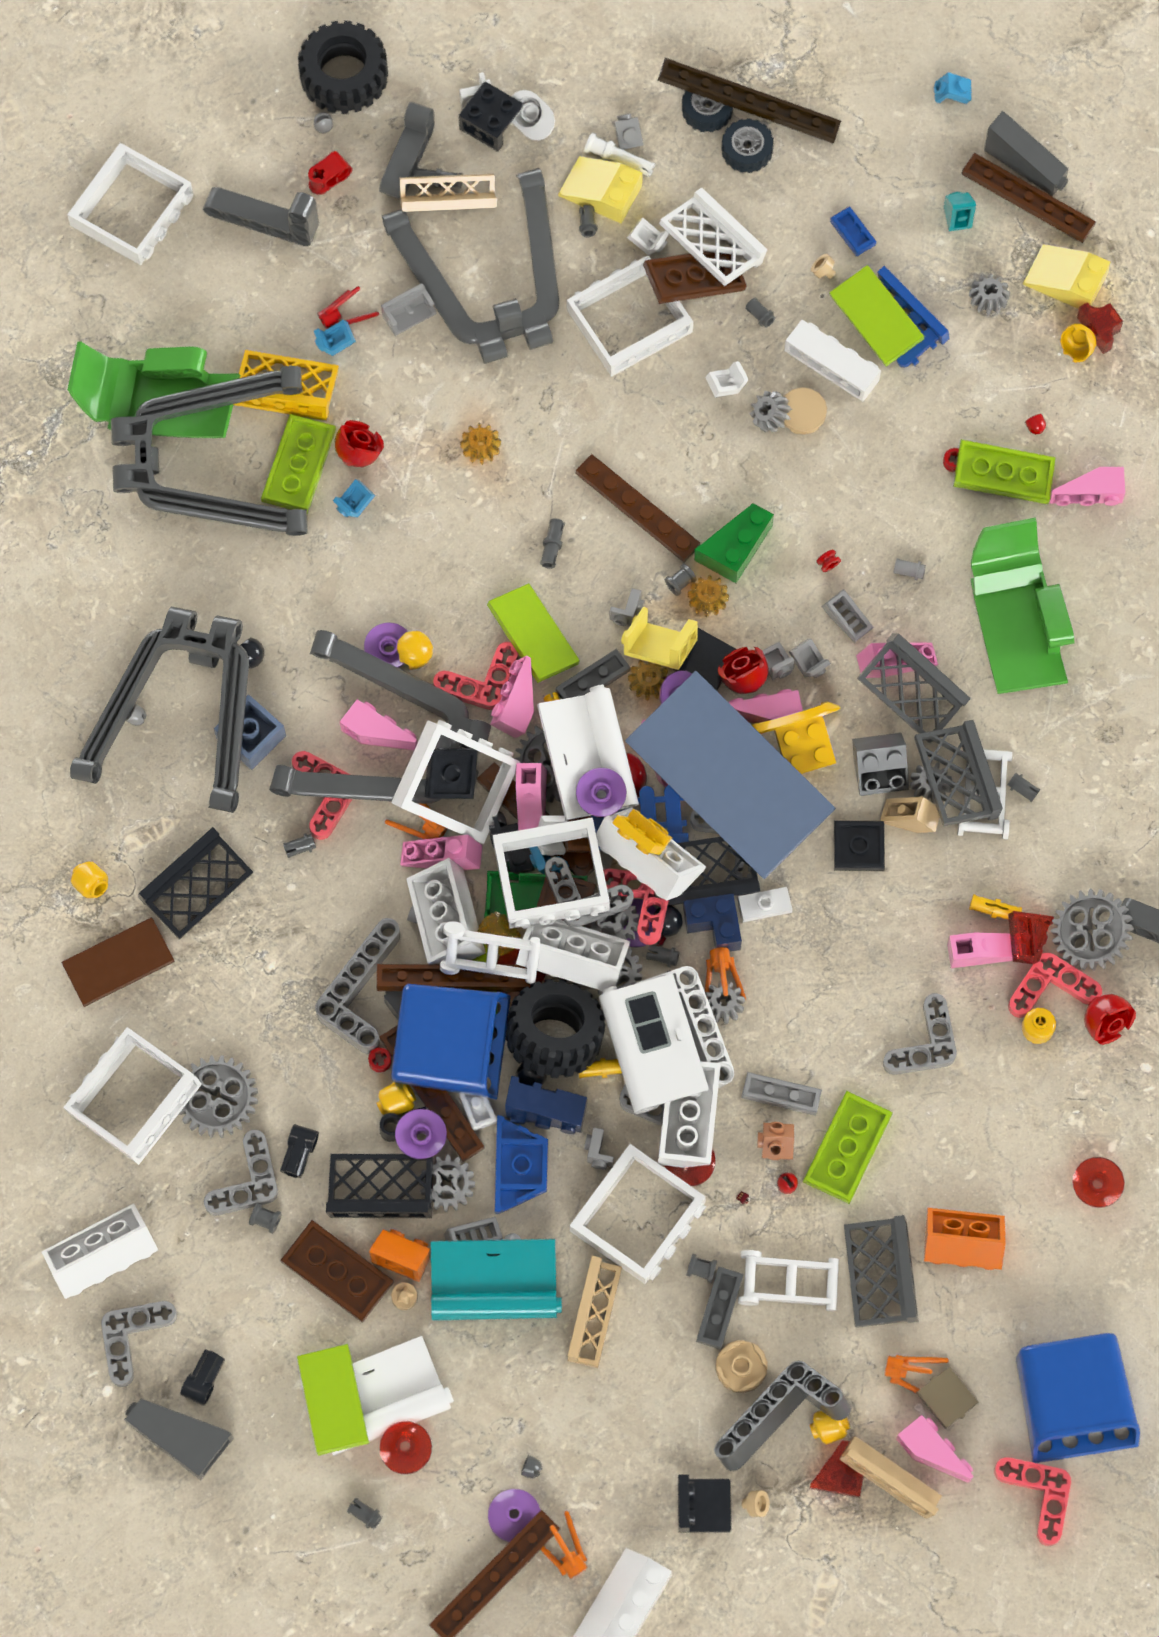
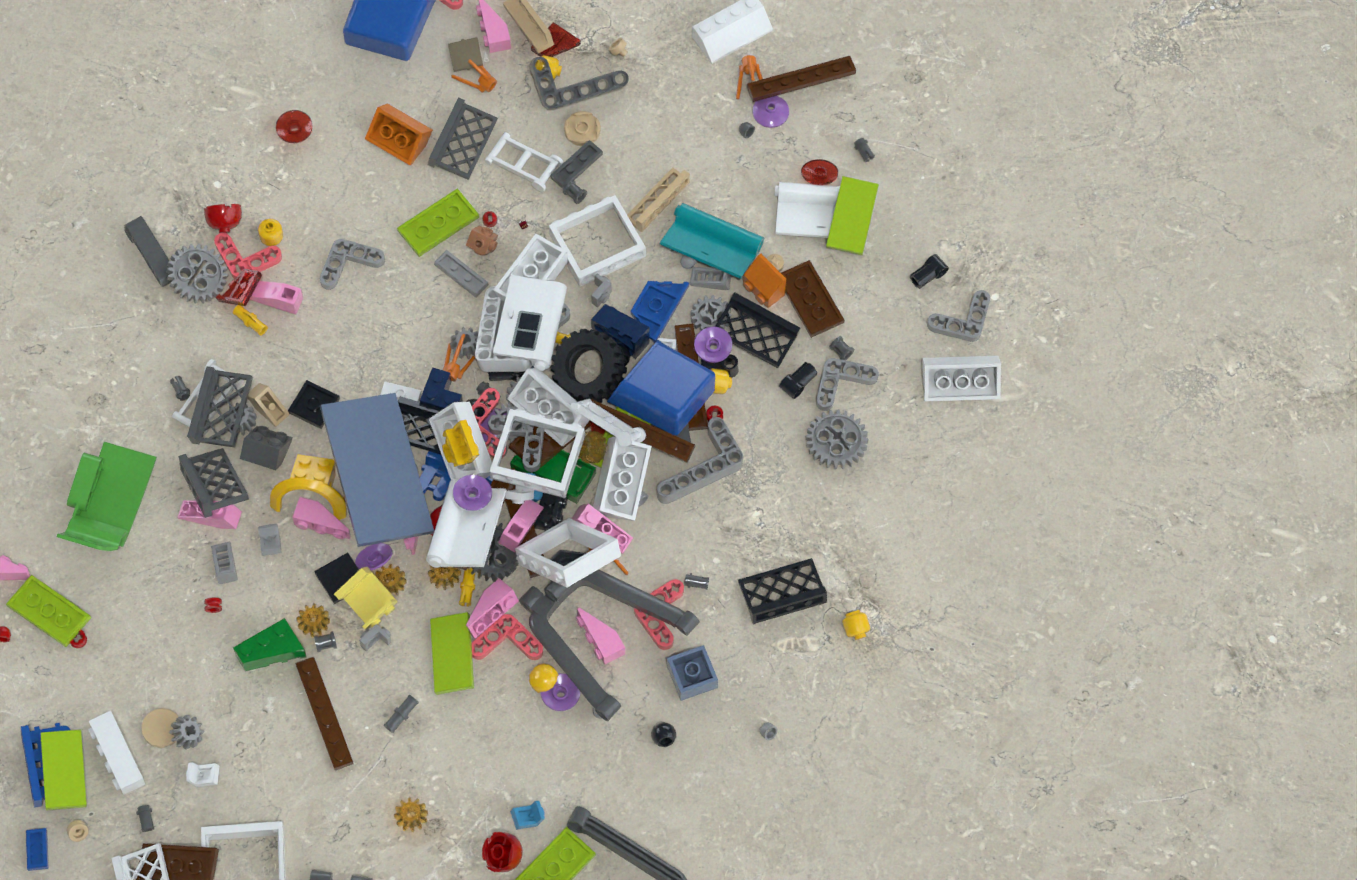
camera: 155 degrees left, 5 degrees down
(117, 962) = (862, 562): reddish brown tile -> none
(160, 1118) = (913, 422): white window -> none
(181, 1437) = (960, 243): dark grey slope -> none
(204, 651) = (709, 759): dark grey piece -> none
(599, 673) = (428, 600): dark grey plate -> none
(704, 1505) = (652, 61): black bracket -> none
(744, 670) = (320, 550): red cylinder -> none
(778, 661) = (293, 550): light grey bracket -> none
(909, 569) = (160, 573): light grey pin -> none

